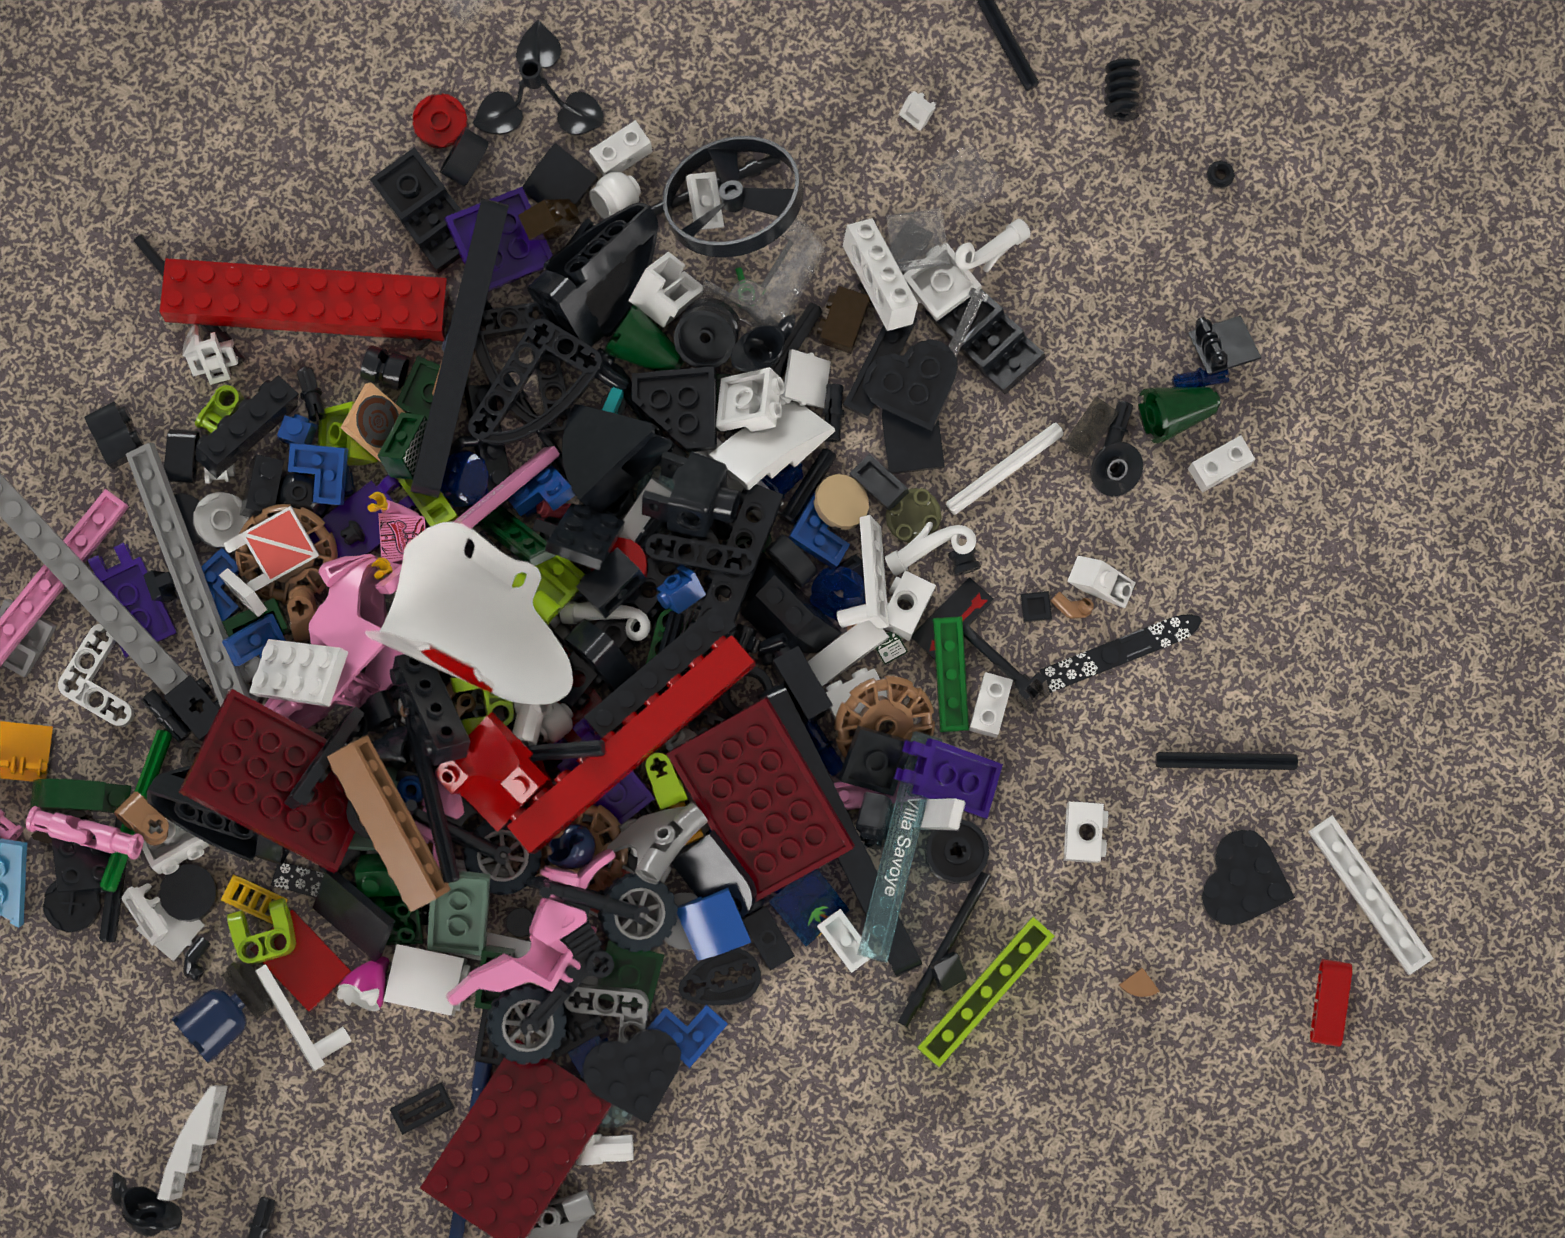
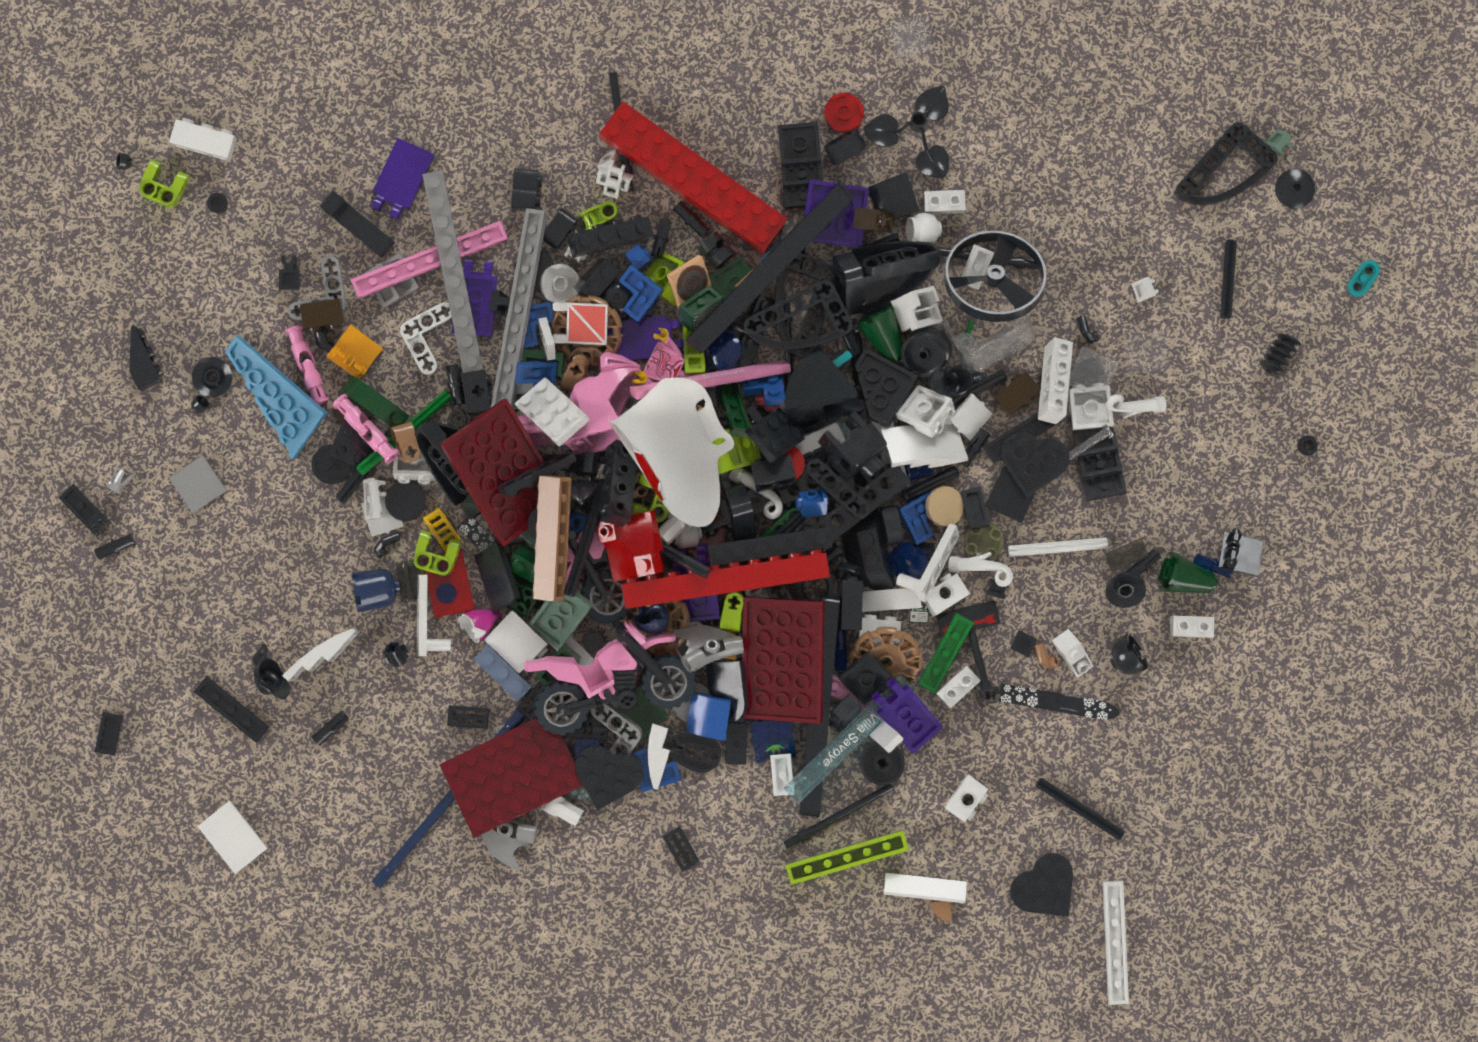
camera: 25 degrees right, 5 degrees up
(286, 1086) = (395, 654): none -> black gear
(303, 973) = (446, 593): none -> clear blue plate
(333, 350) = (691, 219): none -> black pin
(352, 533) = (636, 342): black piece -> none
(431, 1027) = (503, 673): none -> sand blue arch
(679, 1010) = (657, 754): none -> white slope
(757, 1096) = (689, 864): none -> black tile
(877, 198) = (1090, 337): none -> black arm
(948, 971) = (832, 830): black tile -> none
(1102, 971) = (925, 888): none -> white tile
(1168, 544) = (1127, 656): none -> black cylinder
(1332, 1002) = (1051, 992): red beam -> none

